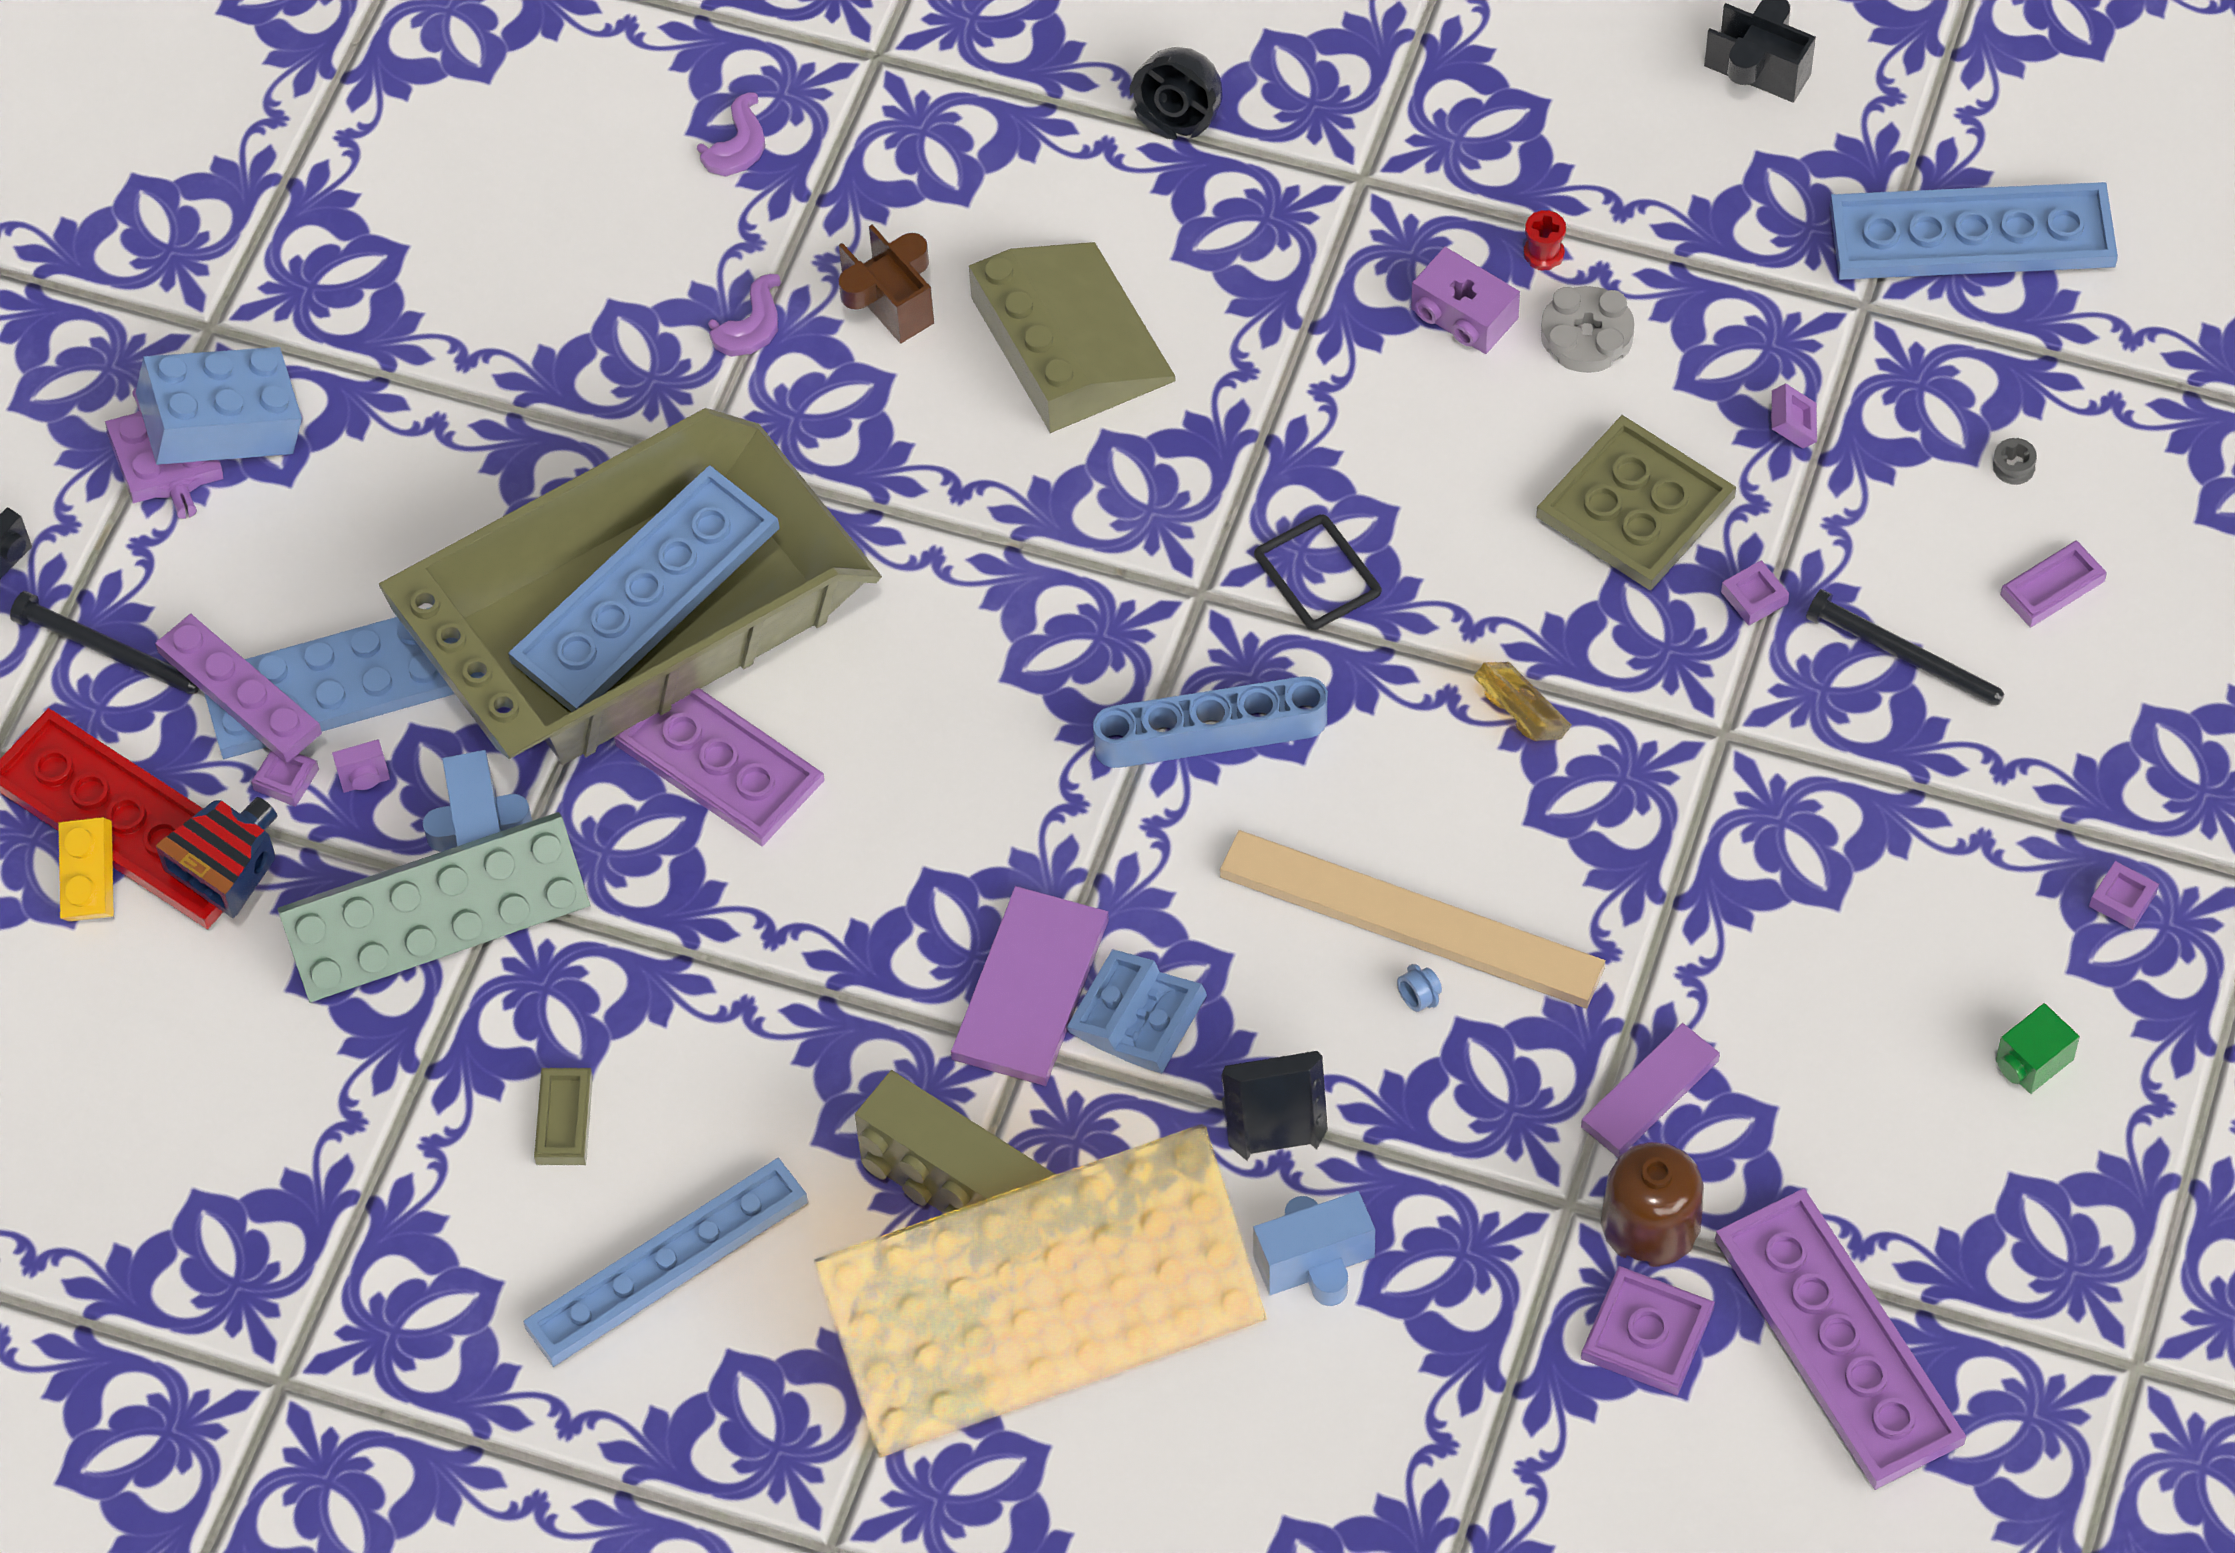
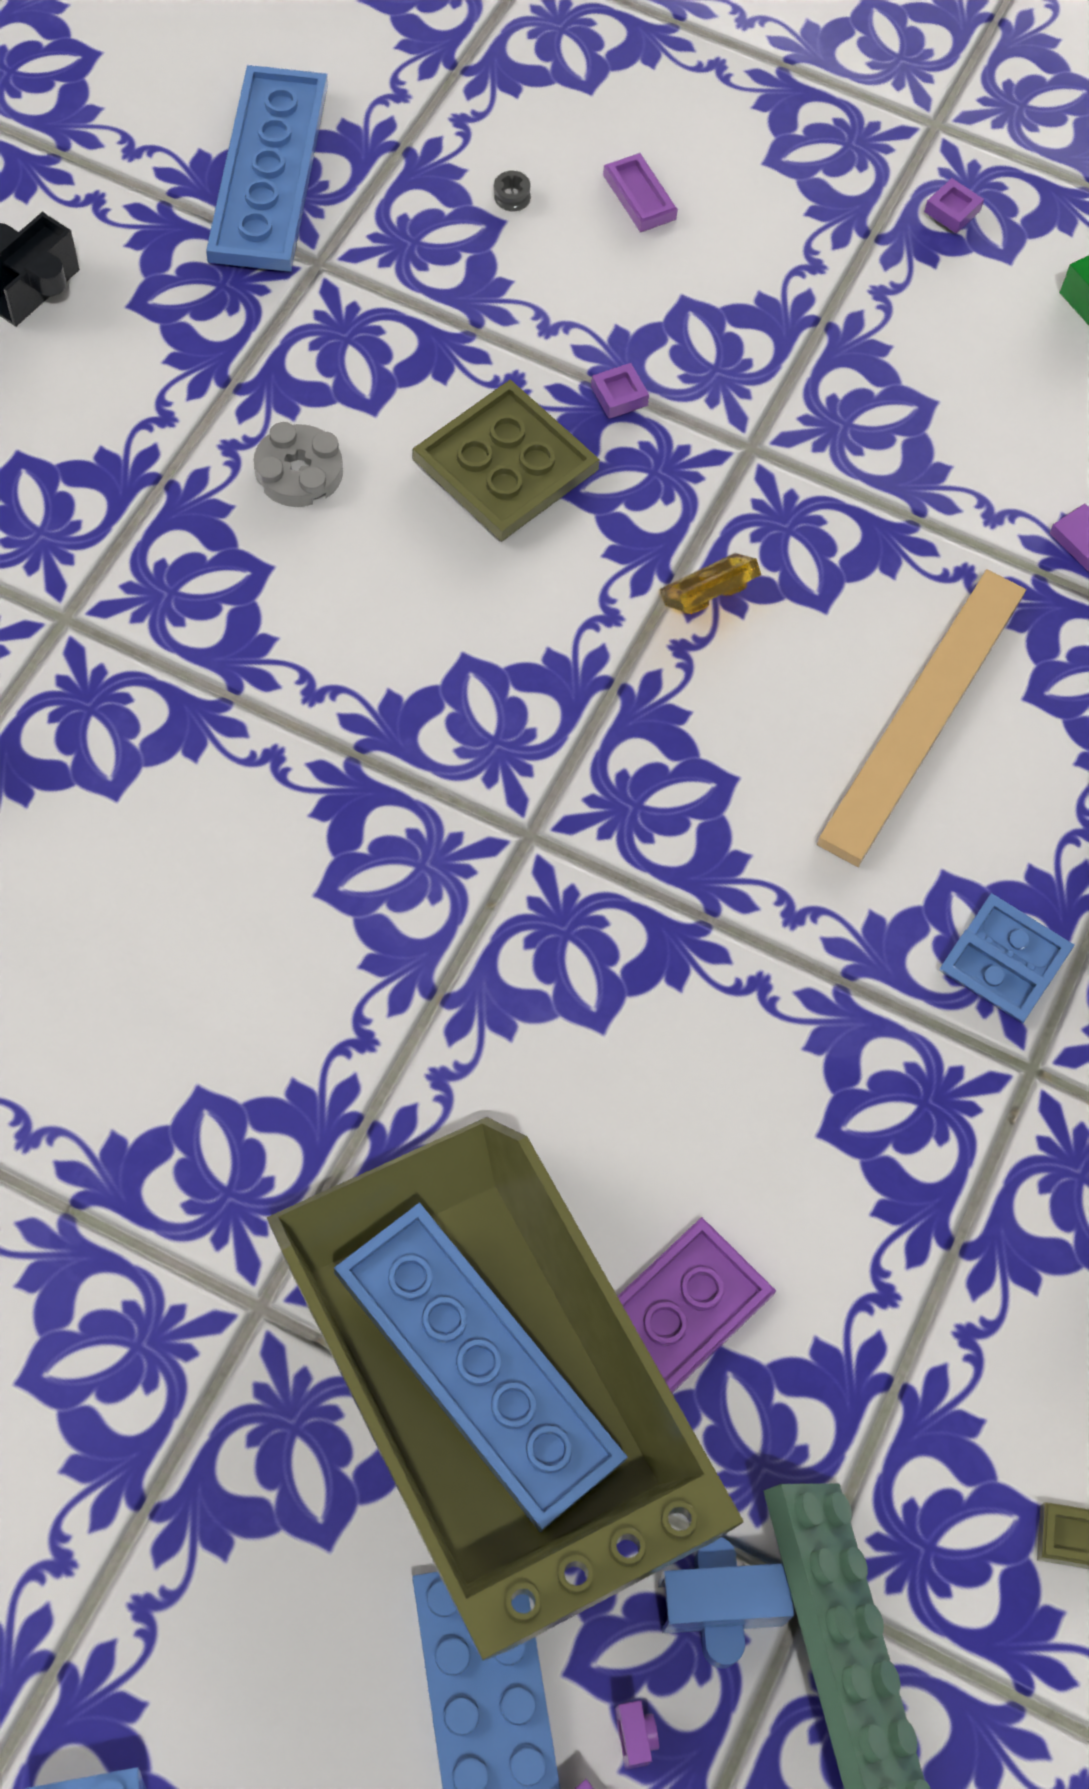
camera: 90 degrees left, 5 degrees up
(754, 332) = (108, 1221): medium lavender piece -> none
(890, 283) = (91, 1065): reddish brown piece -> none
(1030, 986) = (971, 1051): medium lavender tile -> none
(1067, 330) = (194, 905): olive slope -> none
(1192, 737) = (694, 860): medium blue beam -> none
(1260, 551) = (537, 762): black piece -> none
(1419, 987) = (1003, 716): medium blue plate -> none
(1465, 300) = (249, 549): medium lavender brick -> none
(1544, 235) = (188, 469): red bush -> none
(1794, 416) = (439, 328): medium lavender plate -> none
(1824, 609) = (641, 347): black bar -> none

